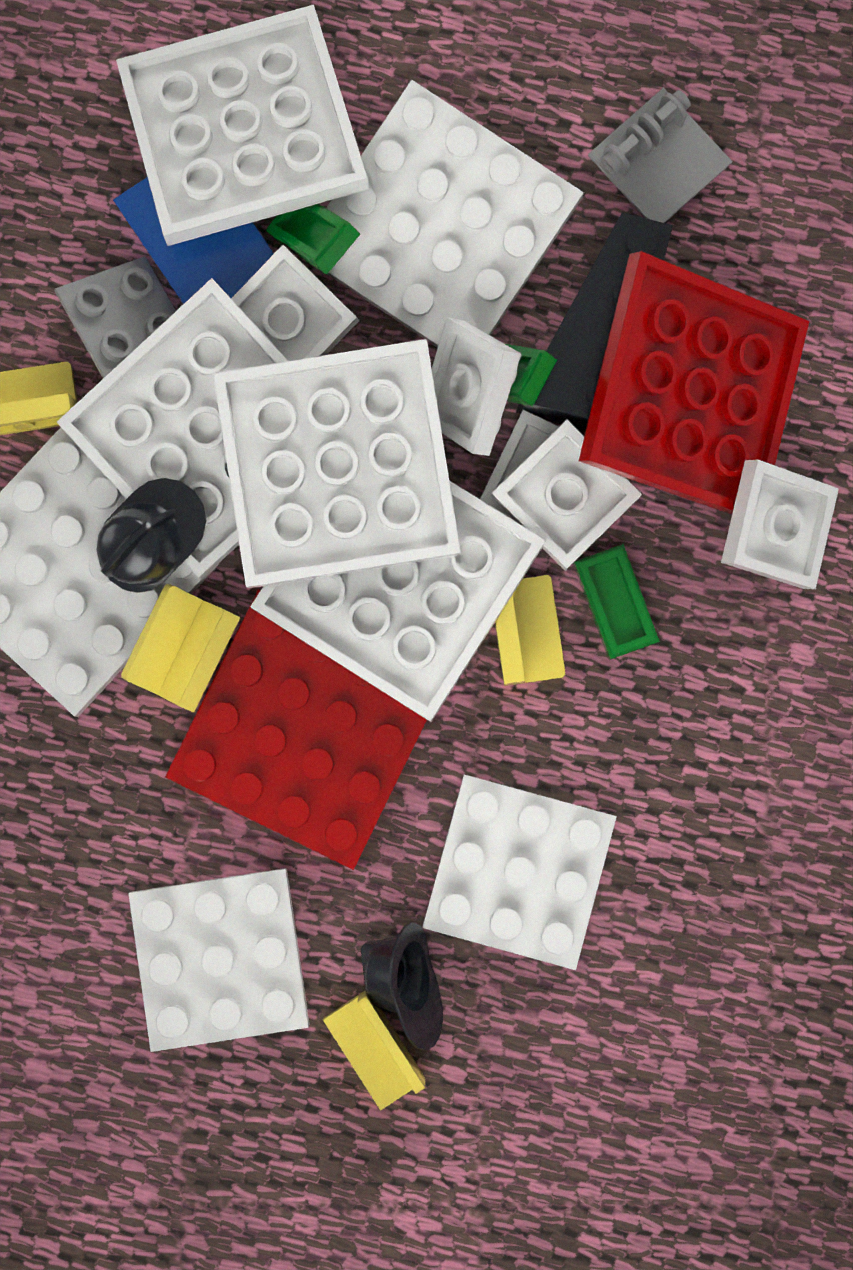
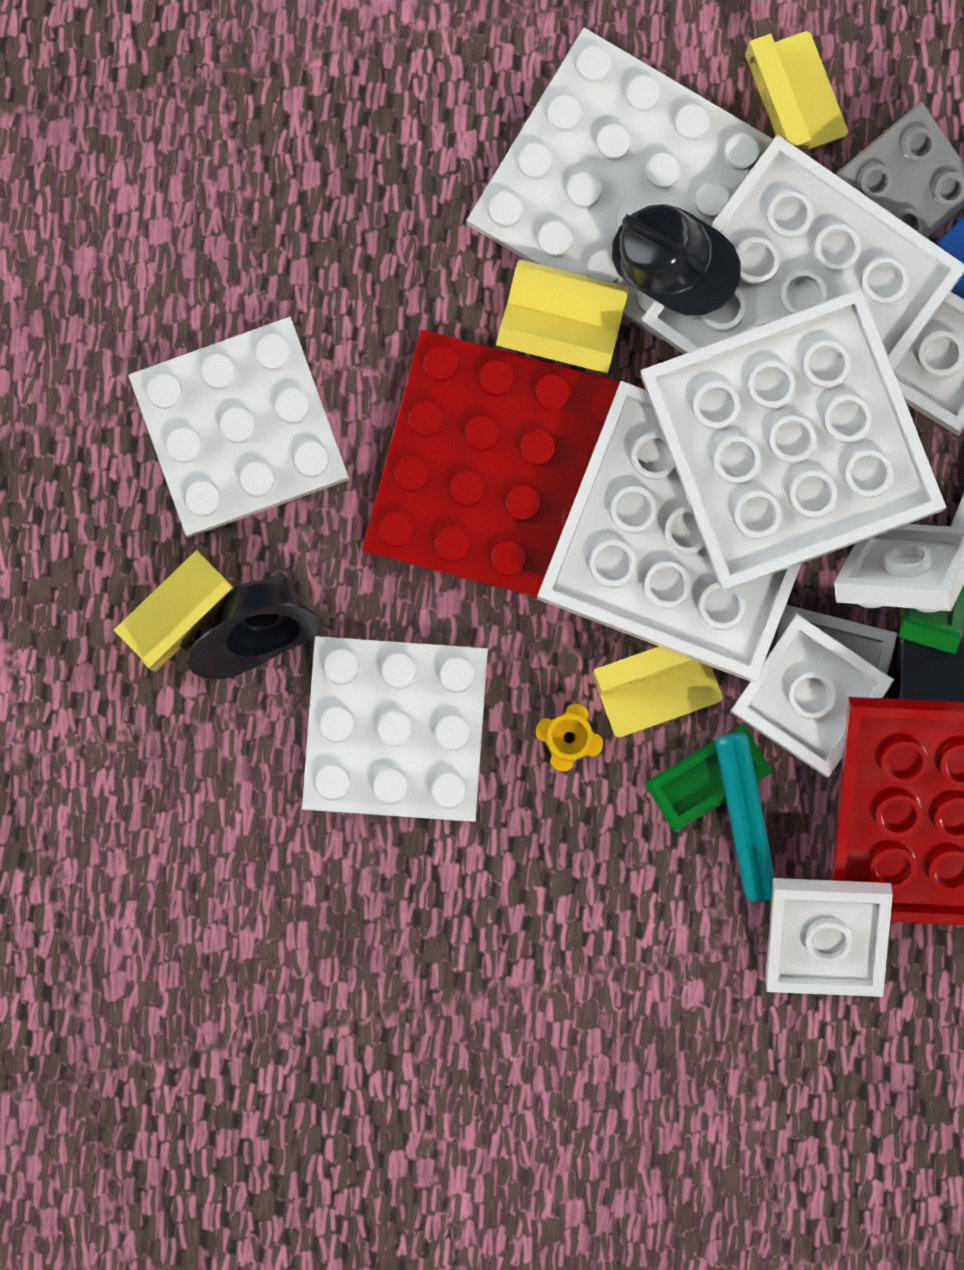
camera: 80 degrees right, 0 degrees up
(563, 703) = (565, 753): none -> yellow plate
(658, 575) = (745, 815): none -> teal axle

